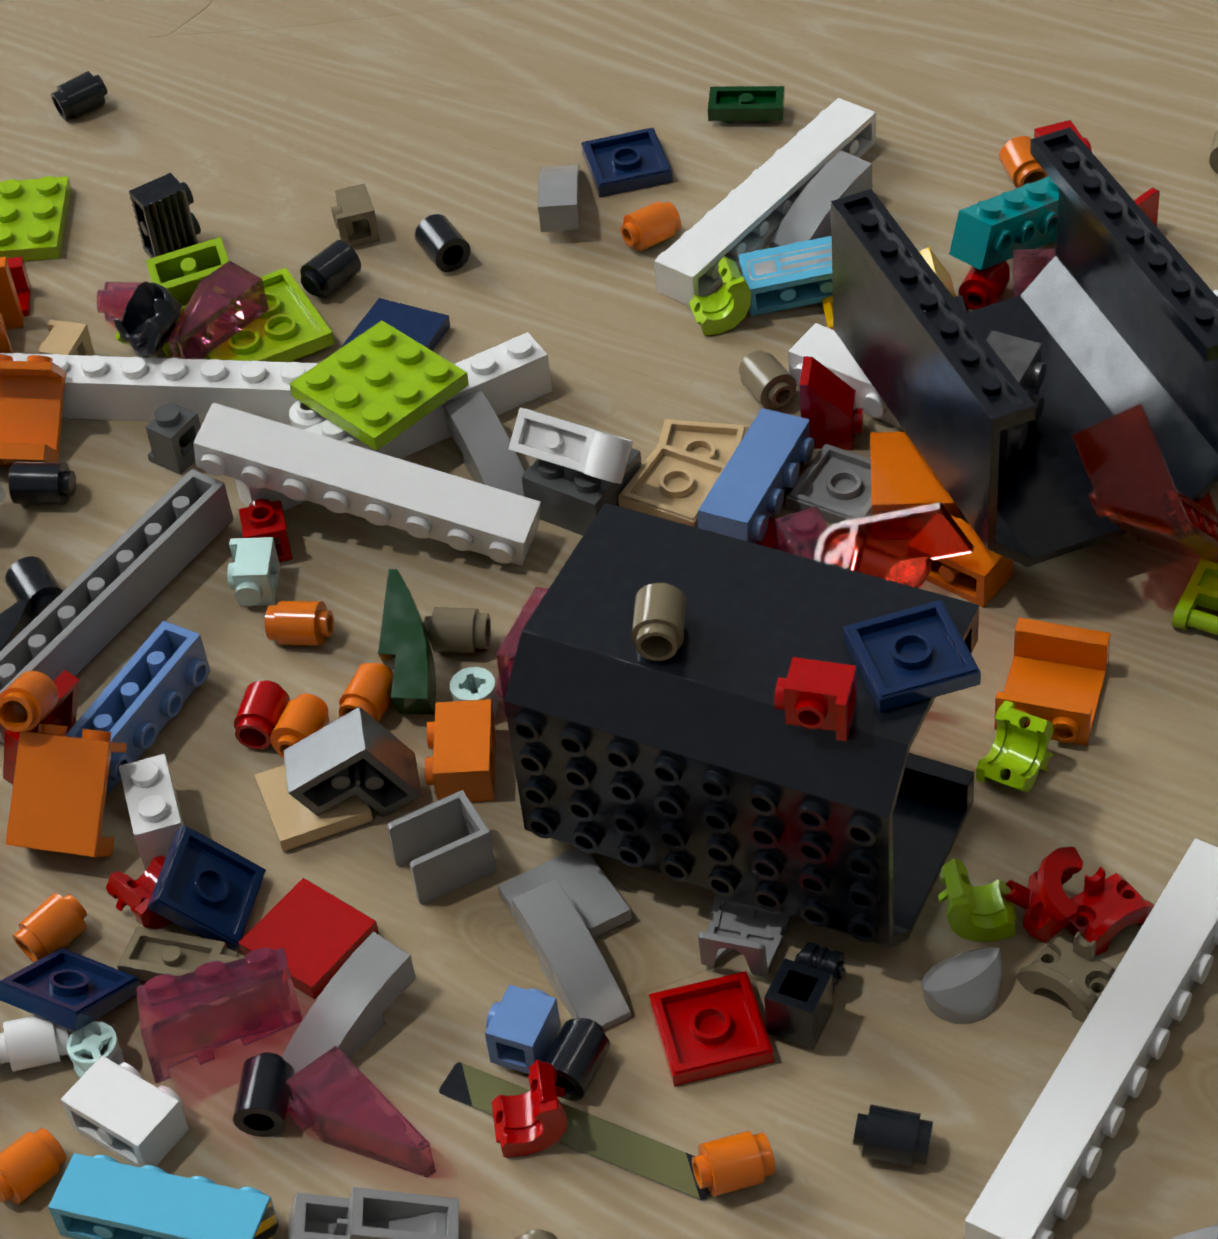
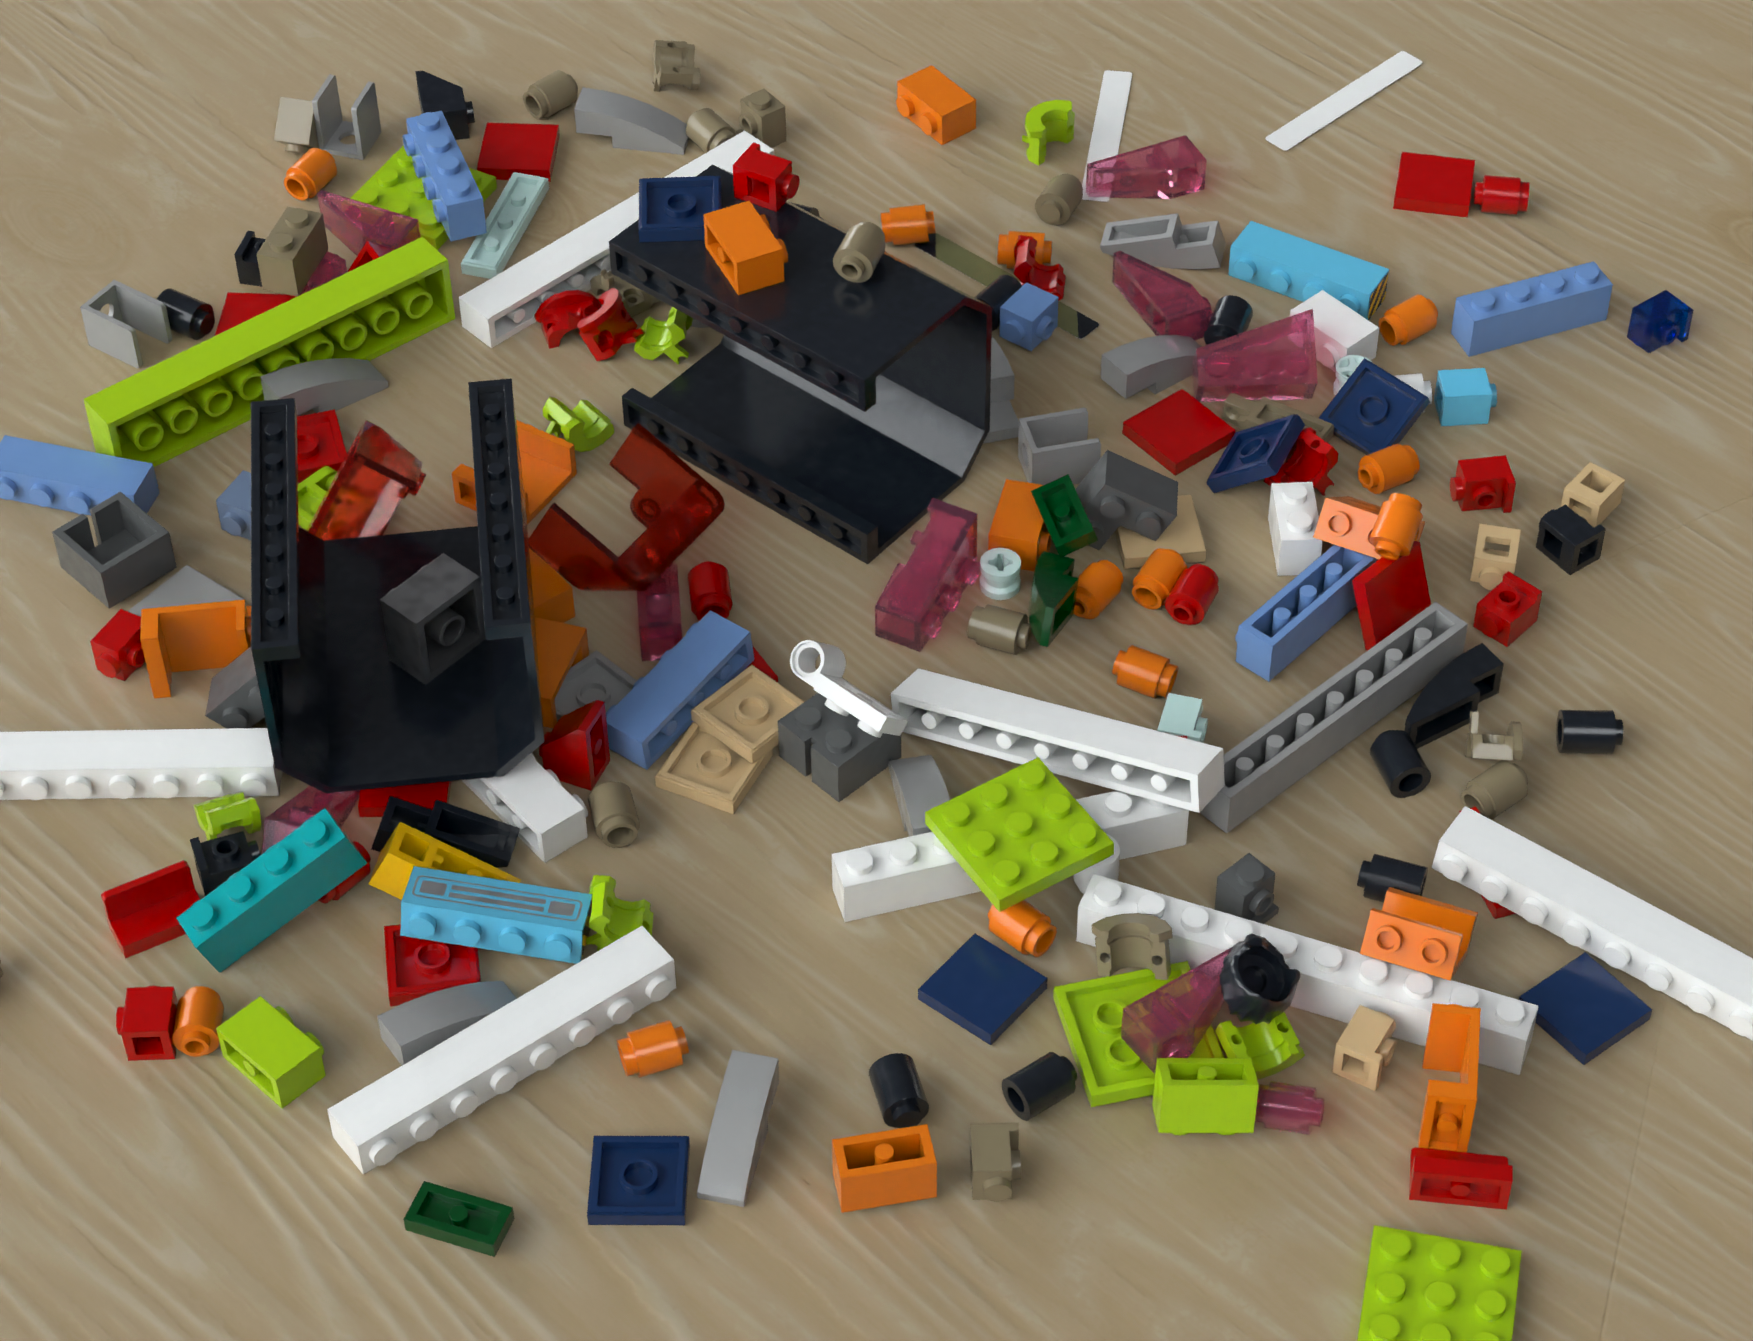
camera: 170 degrees left, 0 degrees up
(164, 215) = (1230, 1182): black brick -> none
(249, 349) = (1133, 942): none -> dark tan piece
(408, 717) = (1064, 515): none -> dark green plate
(435, 180) = (884, 1168): none -> orange brick
(560, 1158) = (1006, 248): none -> orange brick
(800, 594) = (745, 247): none -> orange brick
(952, 157) = (272, 1051): none -> lime brick

